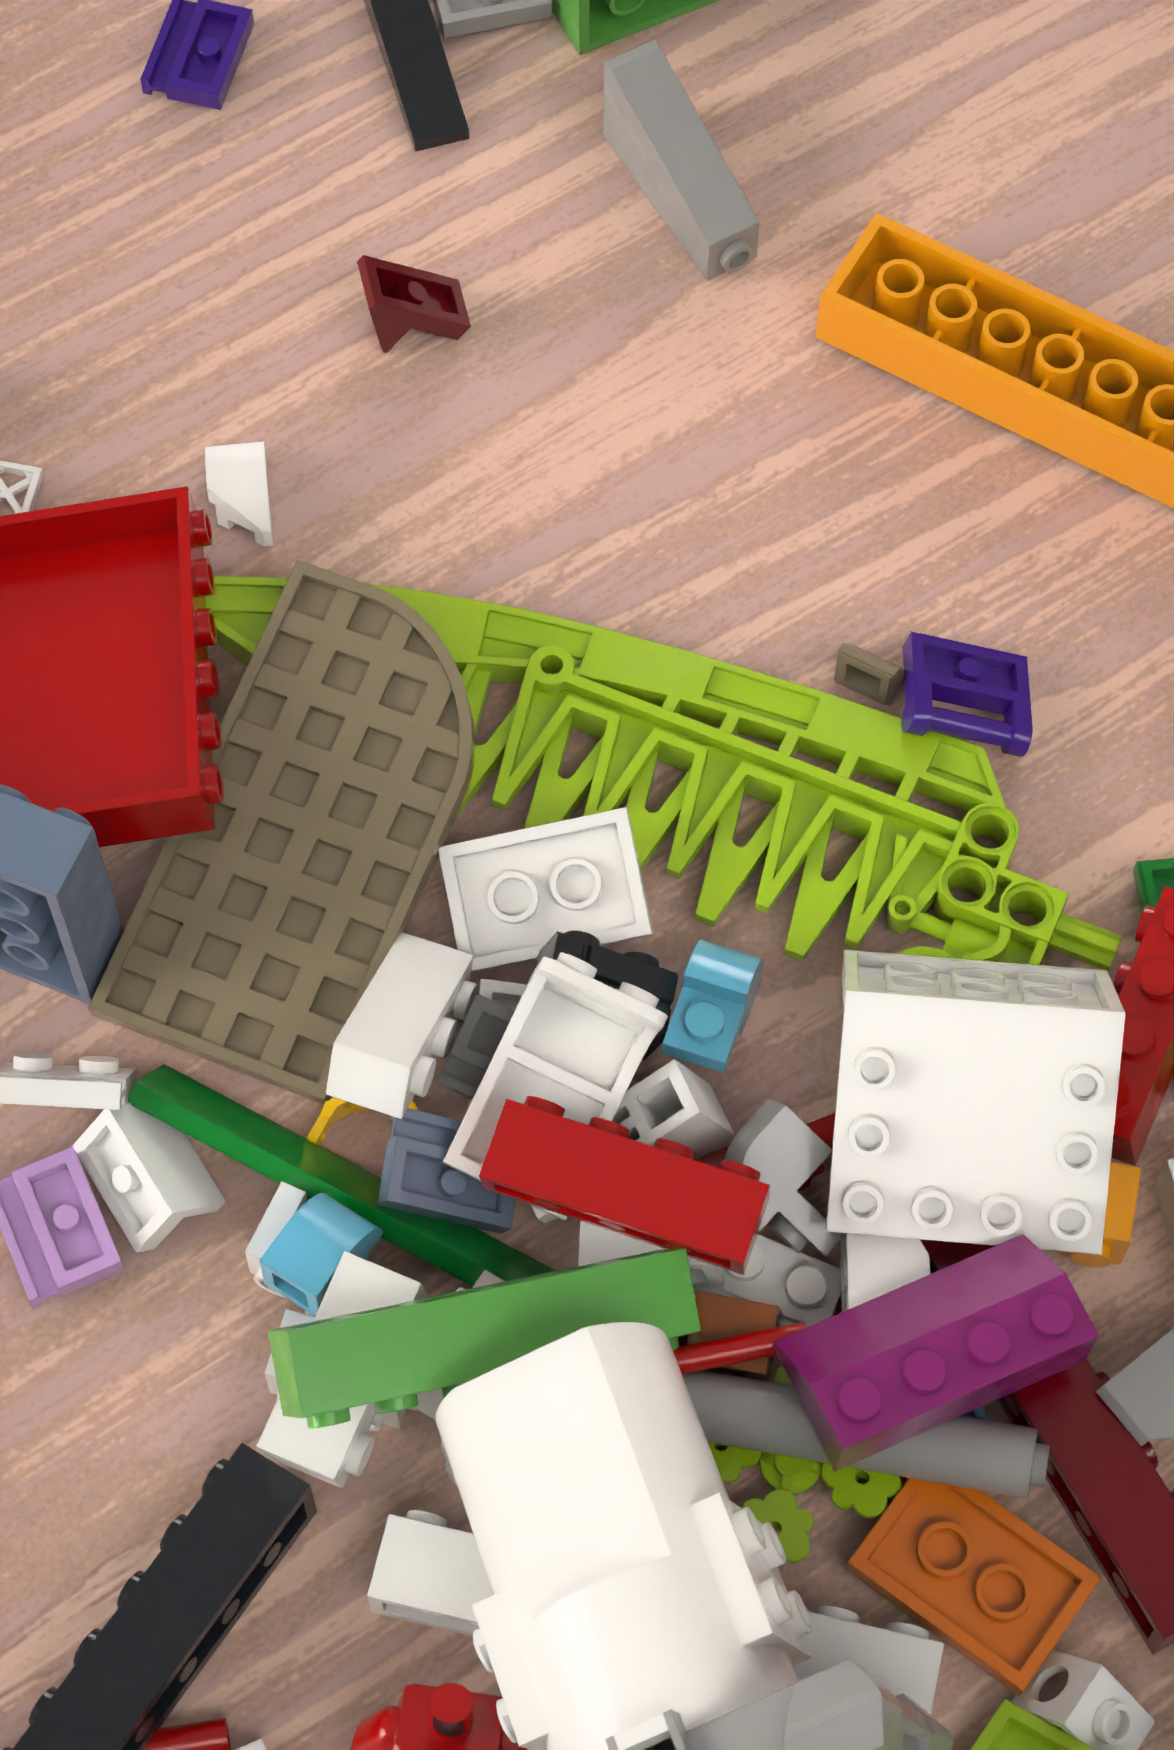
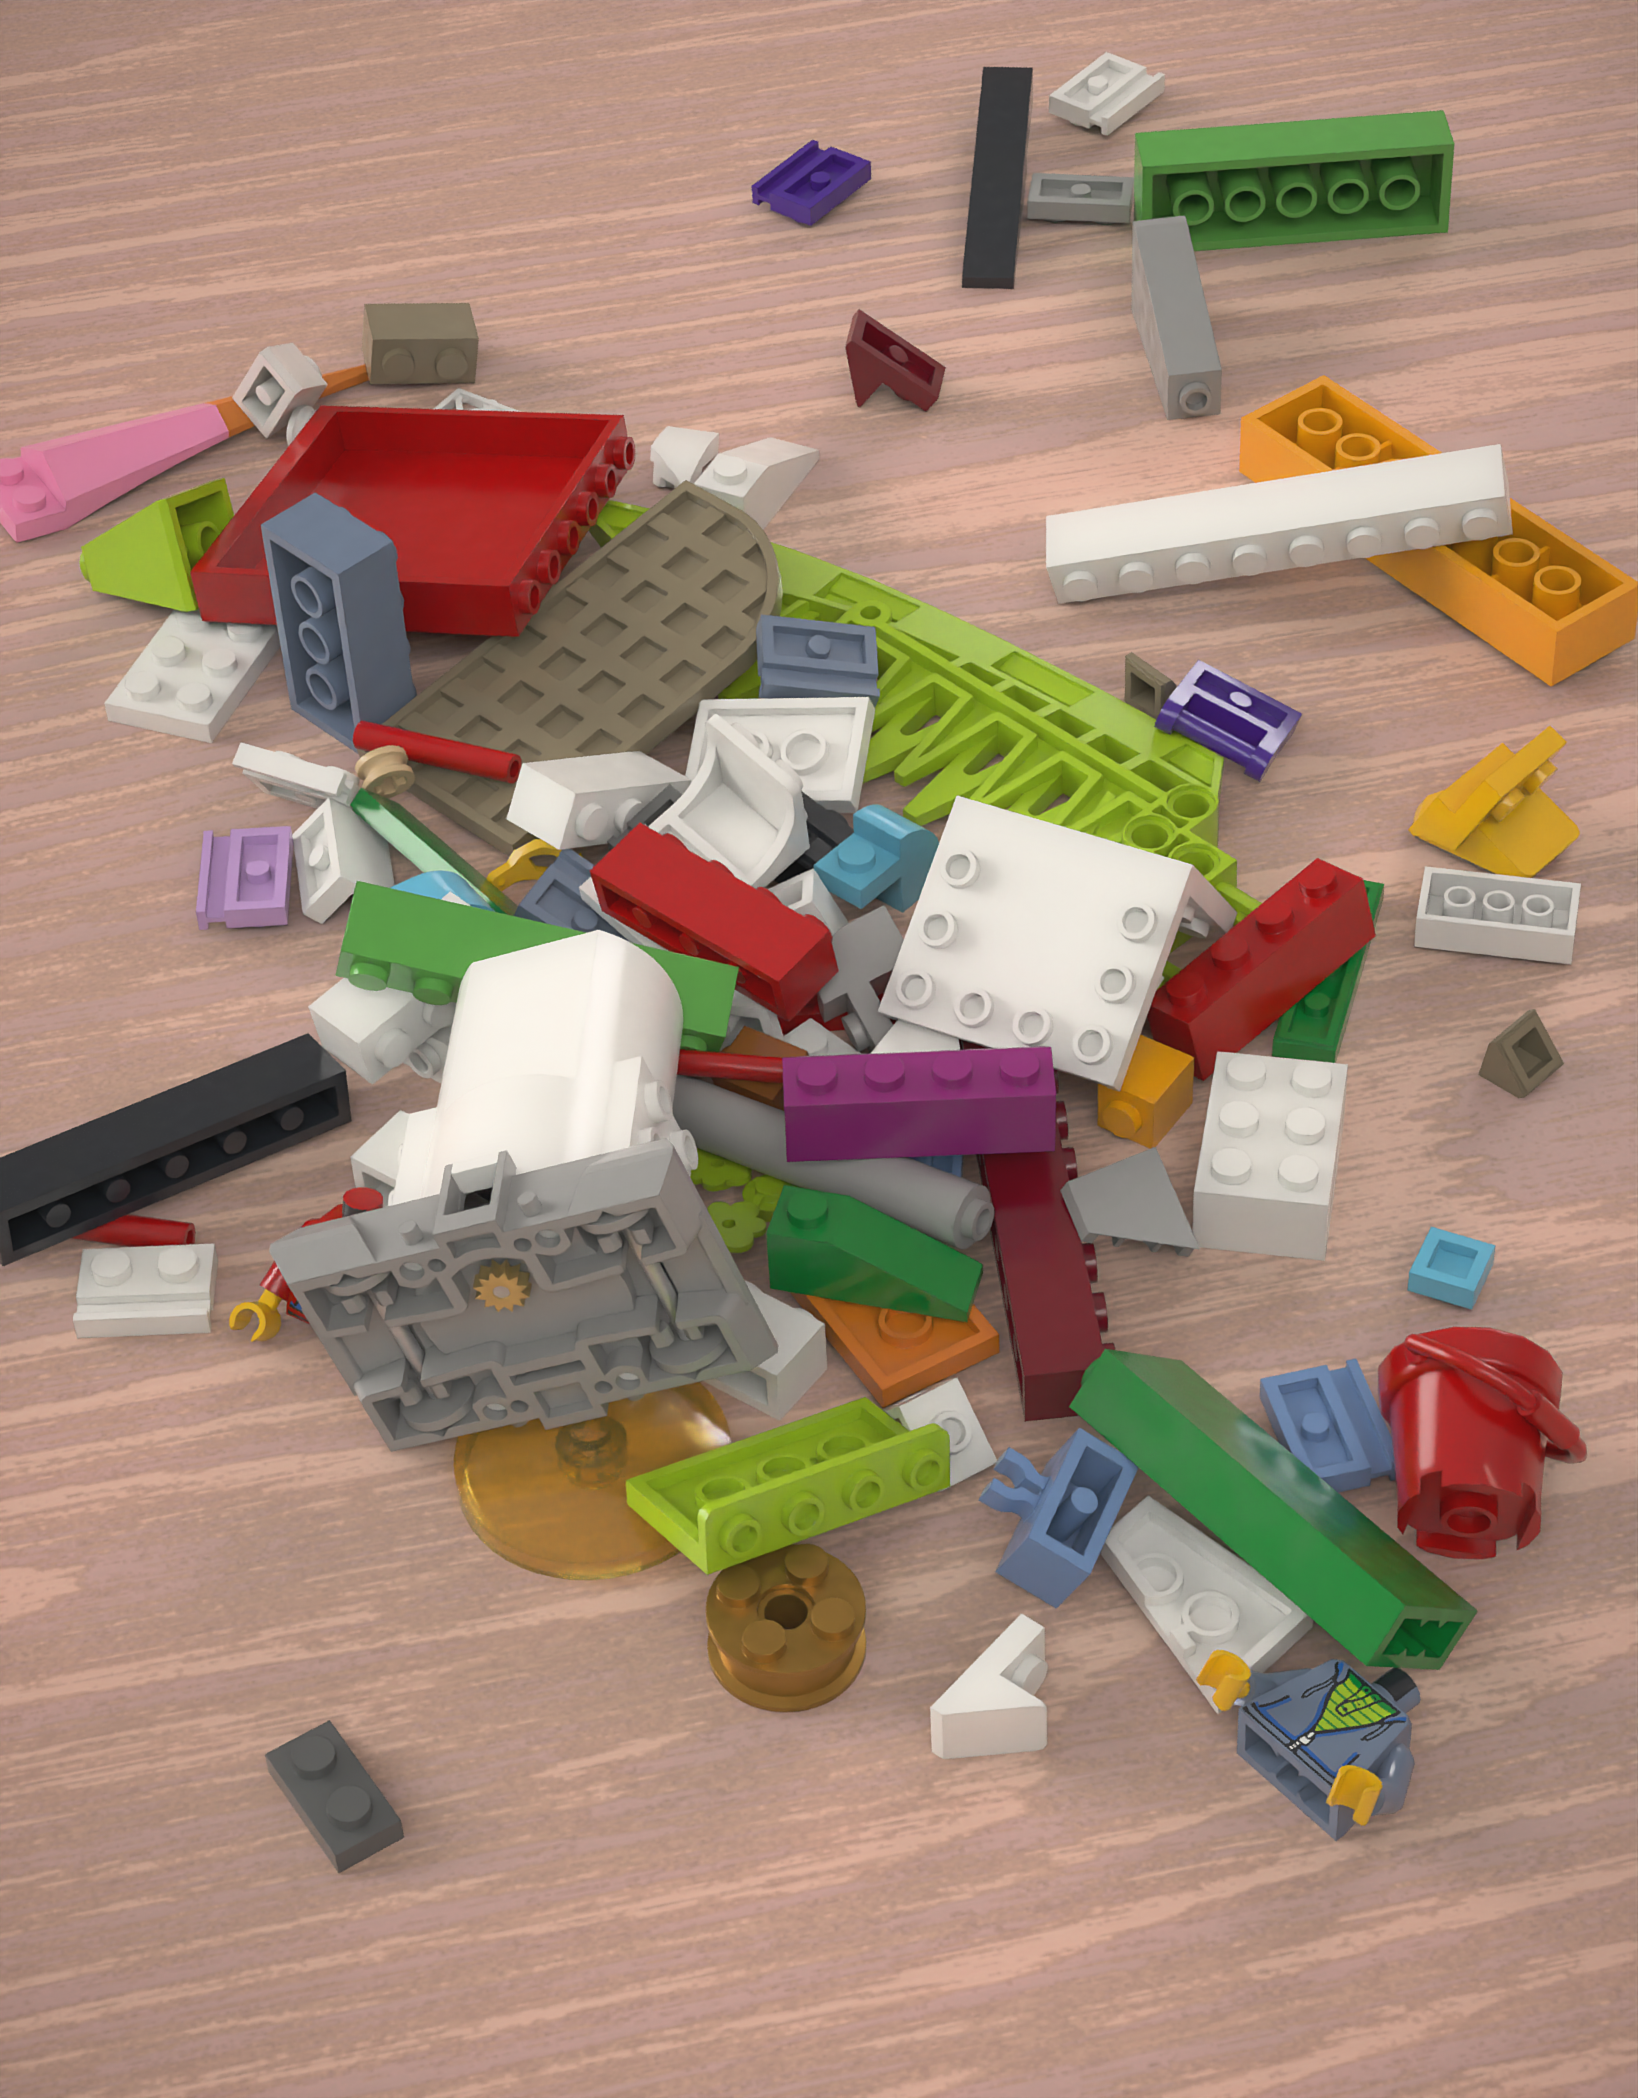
camera: 25 degrees right, 20 degrees down
(147, 1048) = (385, 771): none -> tan bush
(190, 1003) = (440, 751): none -> red piece
(335, 501) = (758, 476): none -> white slope
(542, 765) = (816, 659): none -> sand blue plate
(926, 437) = (1279, 524): none -> white brick
(951, 1545) = (861, 1256): none -> green slope

